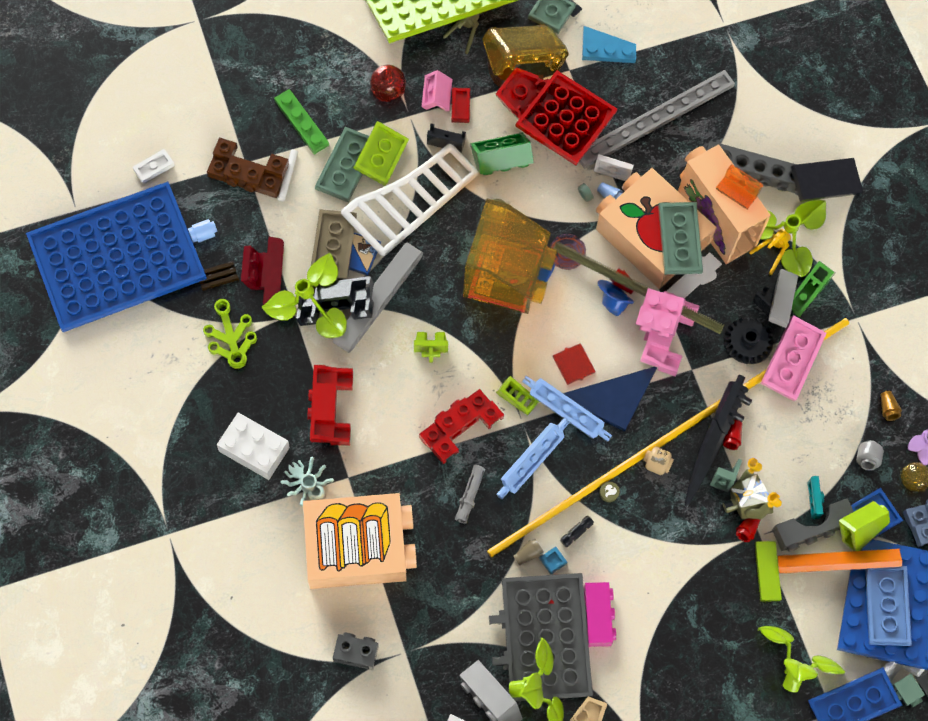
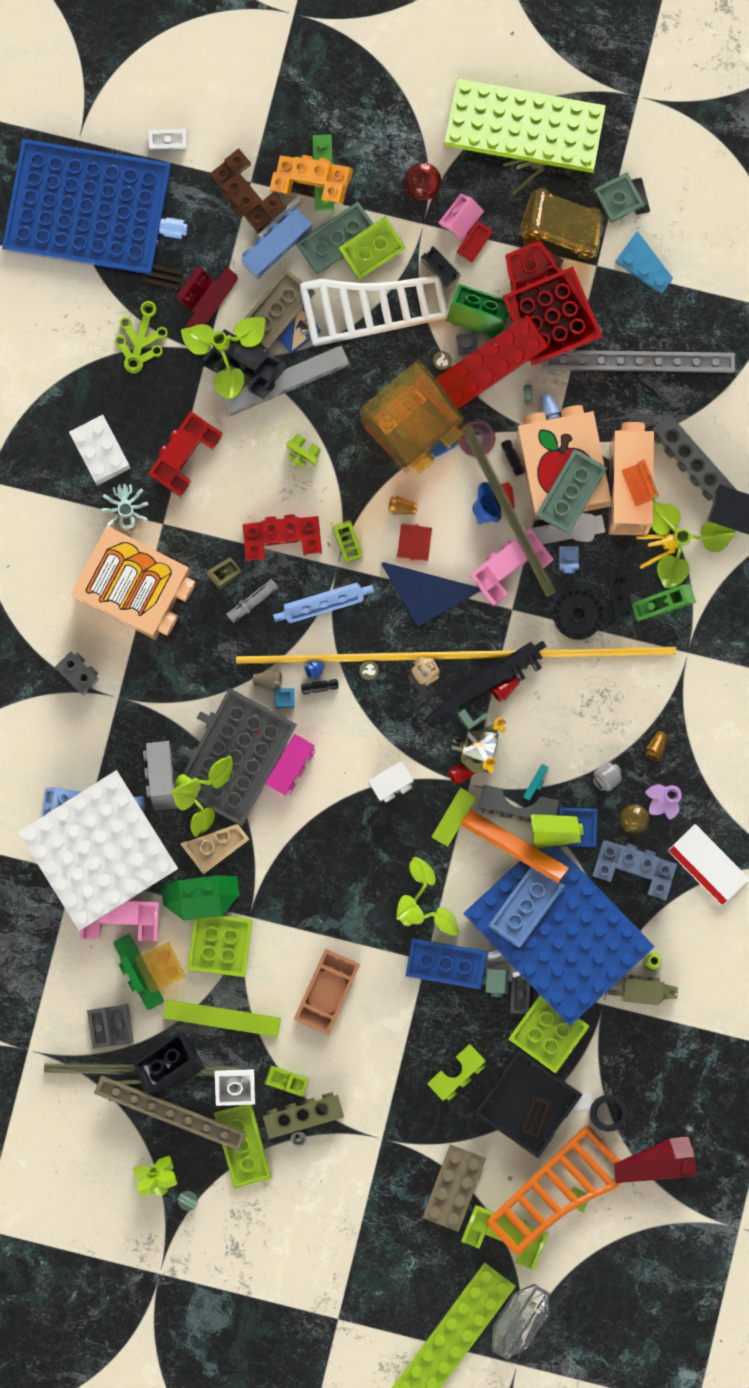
camera: 40 degrees right, 15 degrees up
(294, 122) = (314, 173): none -> light orange bracket
(298, 194) = (276, 243): none -> medium blue brick
(429, 486) = (224, 573): none -> olive slope
(508, 184) = (466, 343): none -> dark grey plate
(542, 340) = (402, 506): none -> pearl gold cone
(545, 173) = (492, 362): none -> red plate
(562, 519) = (314, 669): none -> blue plate
(567, 408) = (379, 578): light blue plate -> none
(607, 249) = (512, 457): none -> black axle
(613, 167) = (568, 386): white plate -> none
(660, 313) = (509, 547): bright pink plate -> none
(697, 571) = (391, 781): none -> white slope
(709, 301) = (568, 558): none -> light blue bracket
(783, 298) = (630, 597): light grey tile -> none
(793, 358) = (602, 654): bright pink plate -> none

